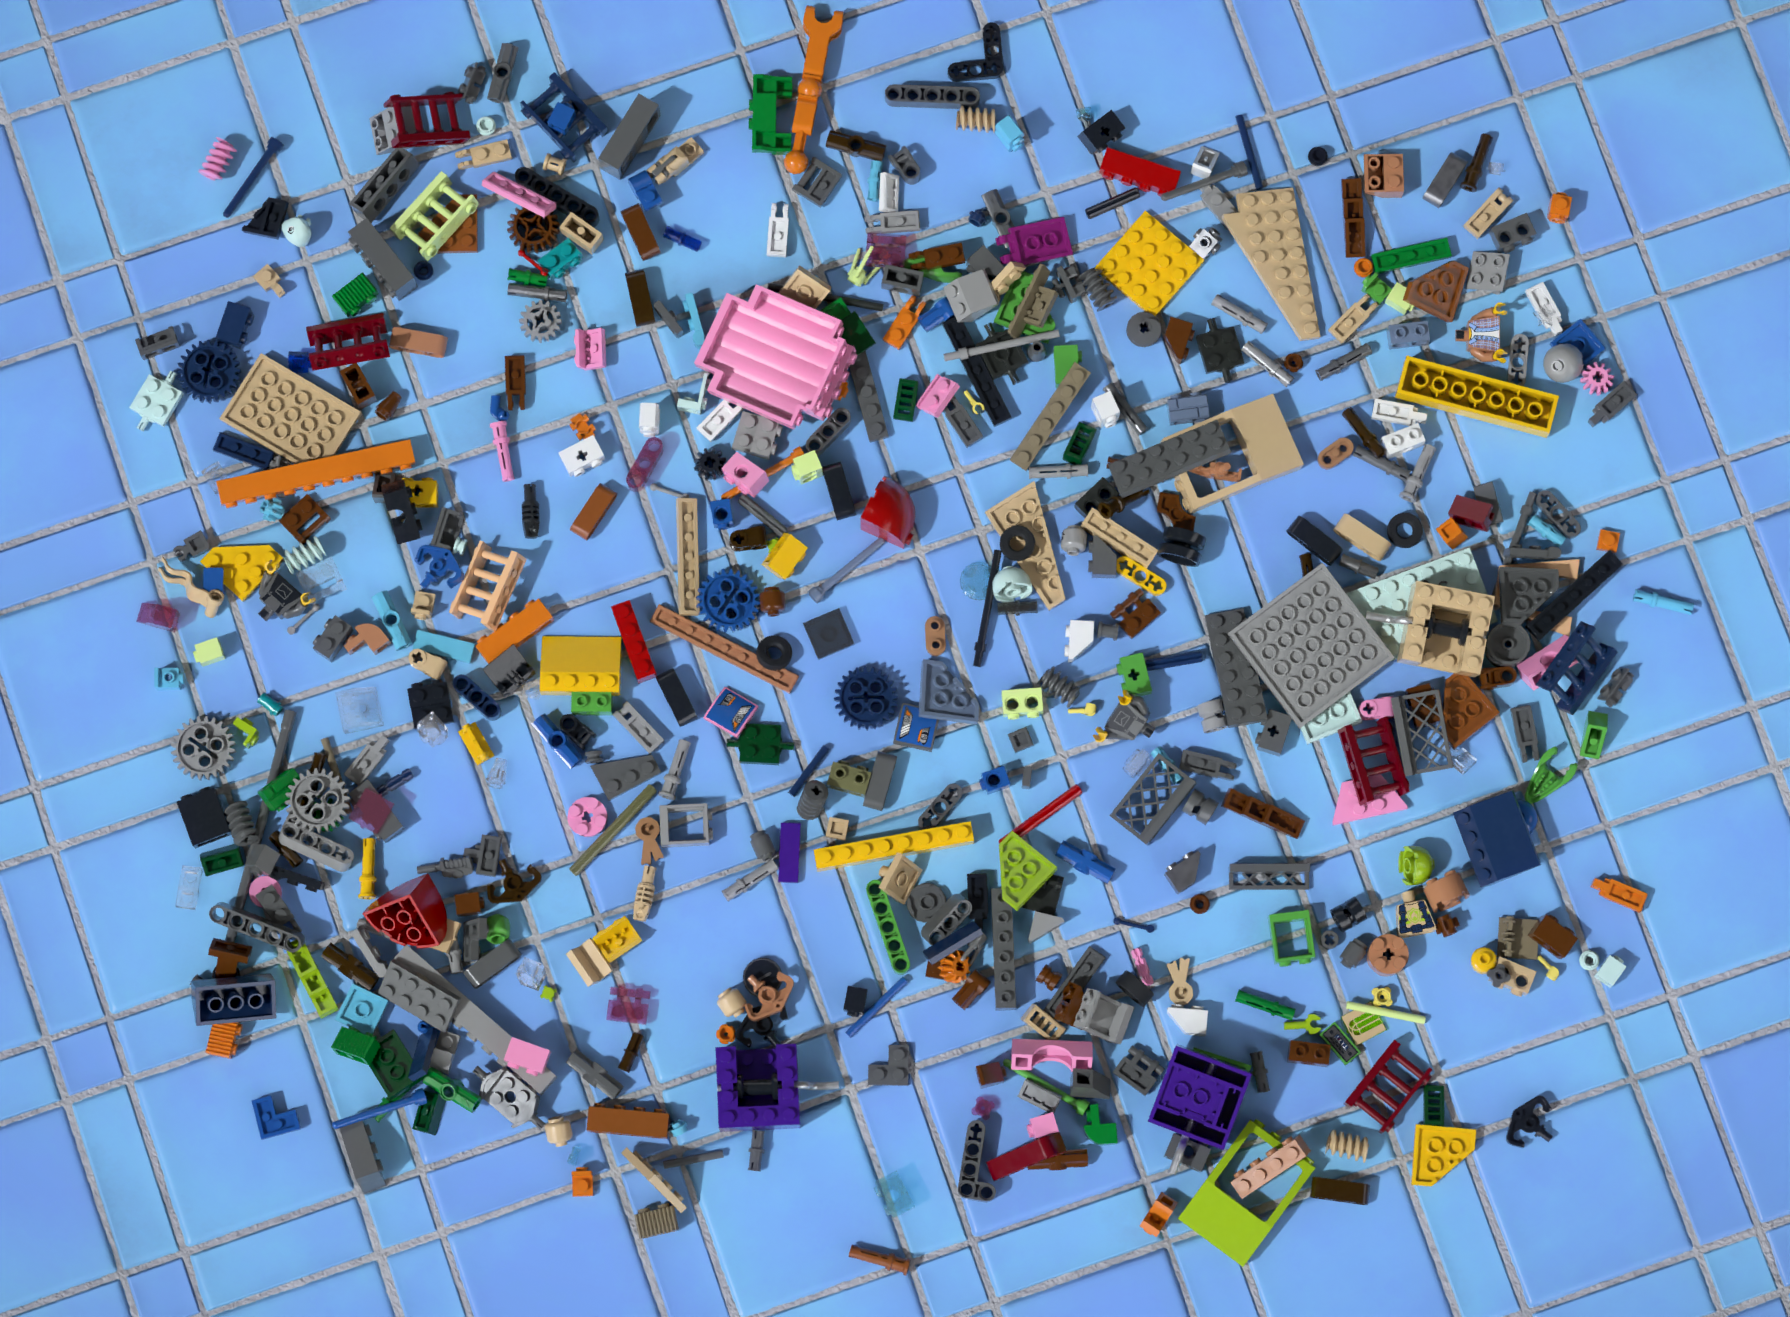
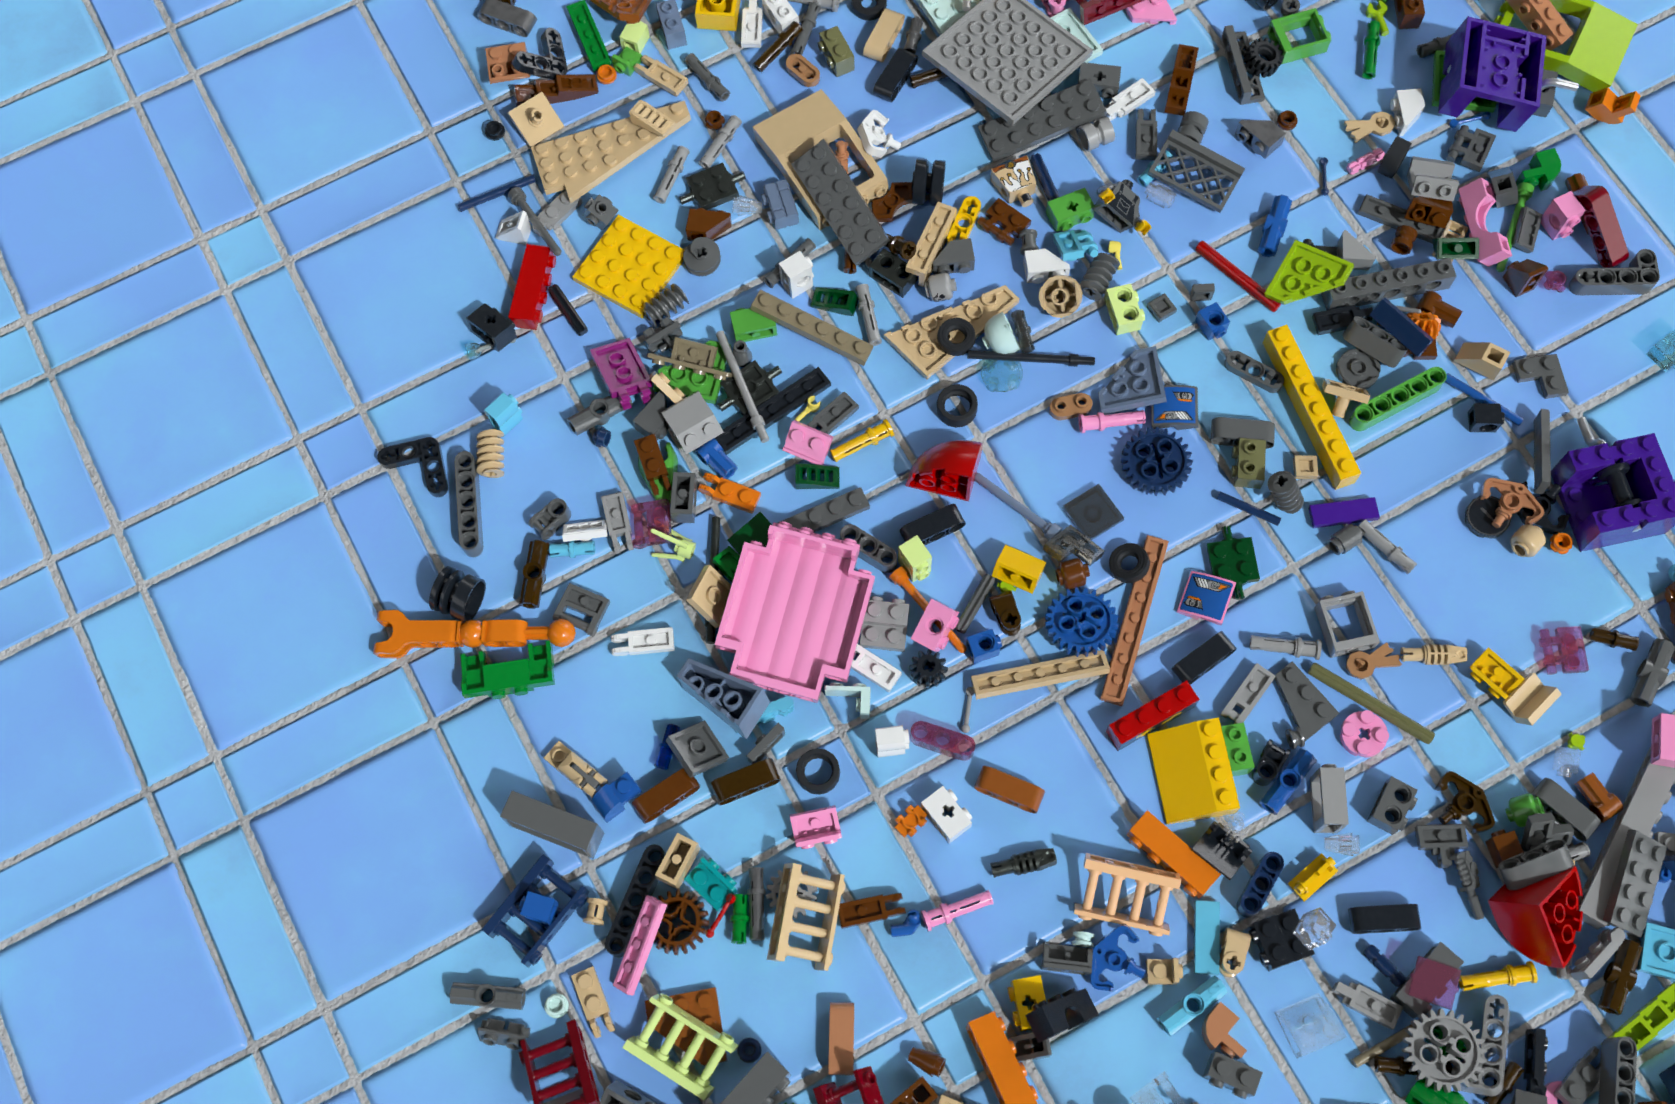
camera: 95 degrees left, 10 degrees down
(431, 791) = (1384, 918): none -> black beam
(447, 916) = (1536, 864): none -> dark grey beam
(491, 996) = (1601, 802): none -> dark orange piece
(524, 818) = (1388, 803): none -> dark grey brick
(529, 313) = (784, 924): none -> tan fence
(534, 766) = (1329, 799): none -> light grey window
(638, 343) = (814, 754): none -> black tyre
(673, 261) = (697, 749): none -> dark grey plate
(708, 289) = (726, 696): none -> sand blue wedge
(802, 607) = (1073, 541): none -> clear smoke plate
(811, 1037) = (1542, 459): none -> dark grey tile
(845, 78) = (457, 594): none -> black wheel
(913, 1012) = (1482, 358): none -> tan slope
(914, 658) = (1102, 421): none -> bright pink pin
(934, 453) = (871, 436): none -> yellow pin
(949, 548) = (962, 391): none -> black tyre
(1027, 1018) = (1456, 248): none -> dark green slope
(1041, 645) = (1060, 296): none -> tan cylinder
(1095, 664) = (1073, 246): none -> medium azure plate
(1174, 631) = (1015, 181): none -> torso
(1193, 376) = (746, 206): none -> clear cone
(1247, 504) = (873, 134): none -> white piece
(1248, 758) = (1130, 99): none -> white hinge
(1266, 884) = (1269, 51): none -> black tyre
(1307, 289) = (642, 110): none -> tan slope
(1319, 195) = (536, 120): none -> tan tile
(1349, 487) = (836, 50): none -> olive brick
(1384, 216) = (552, 65): none -> black beam

